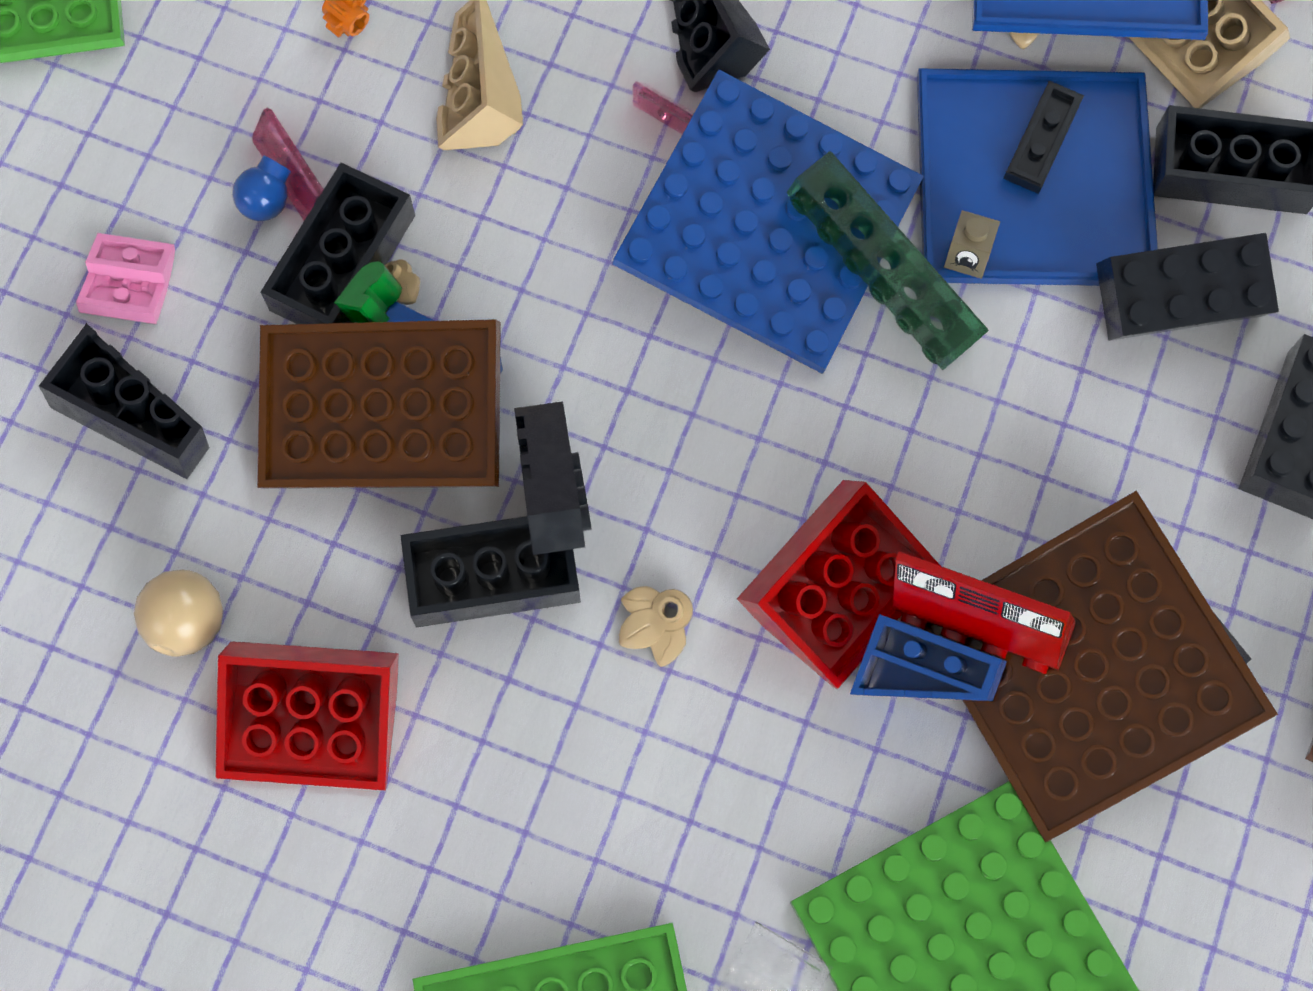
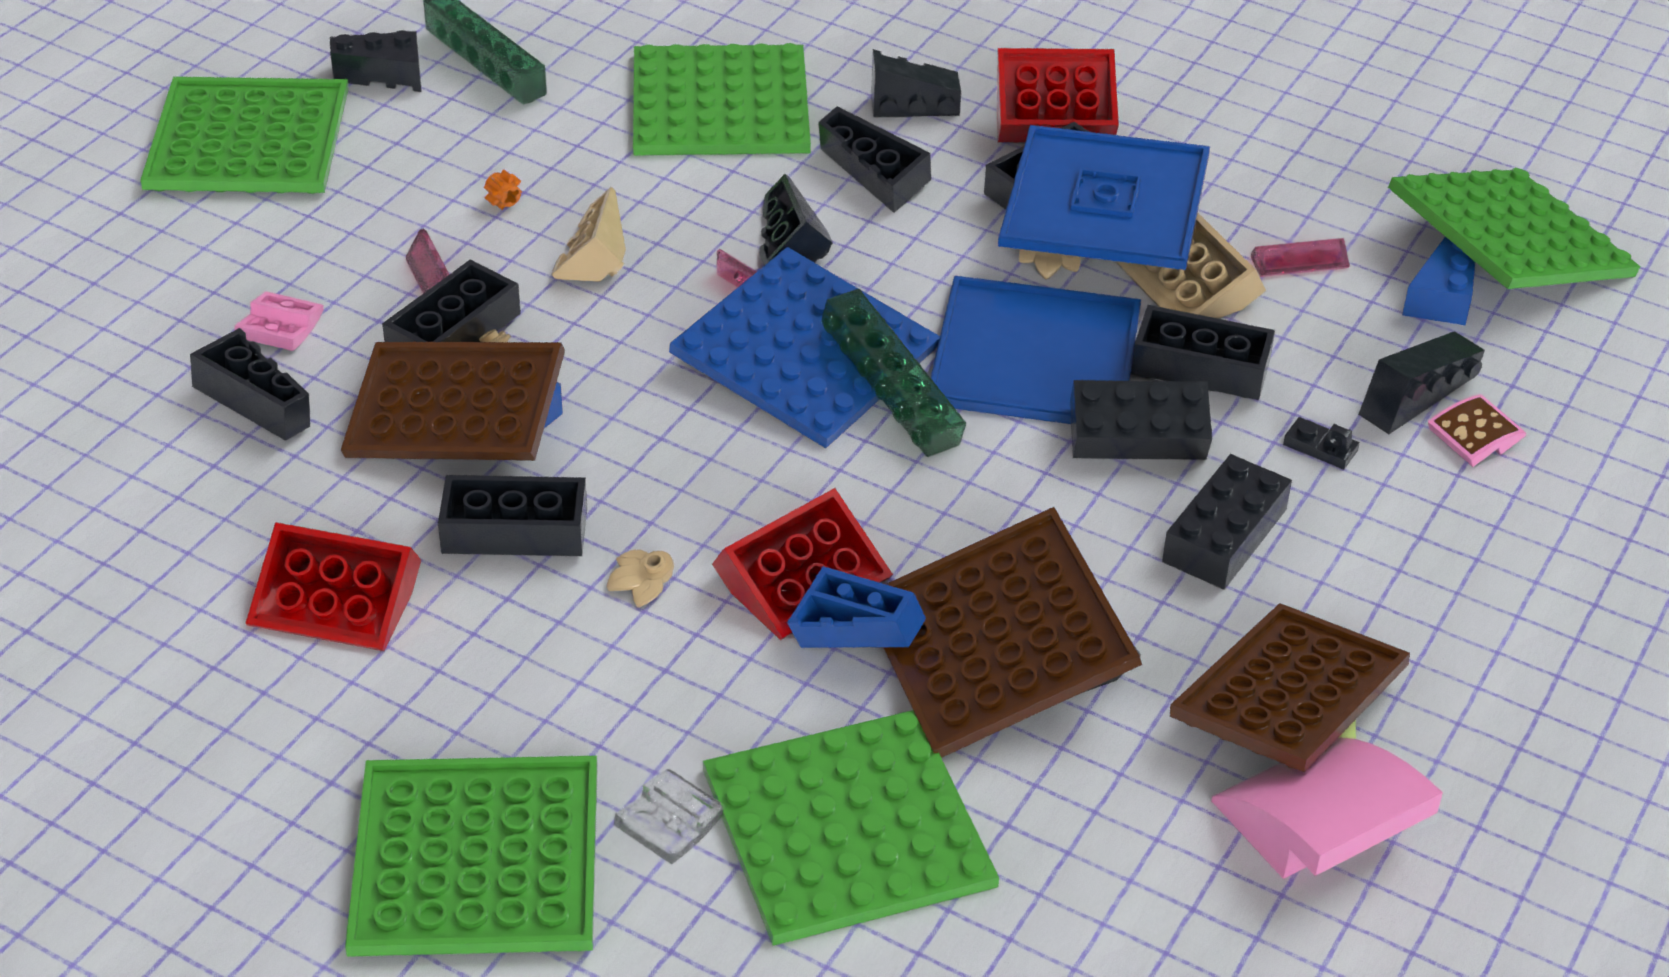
camera: 10 degrees right, 30 degrees down
(178, 613) = (250, 507): tan piece -> none
(261, 190) = (403, 277): blue piece -> none
(369, 294) = (470, 329): green leg -> none
(551, 479) = (576, 448): black wedge -> none
(971, 244) = (966, 371): dark tan brick -> none
(981, 612) = (910, 555): red slope -> none
(1043, 137) = (1046, 325): black tile -> none

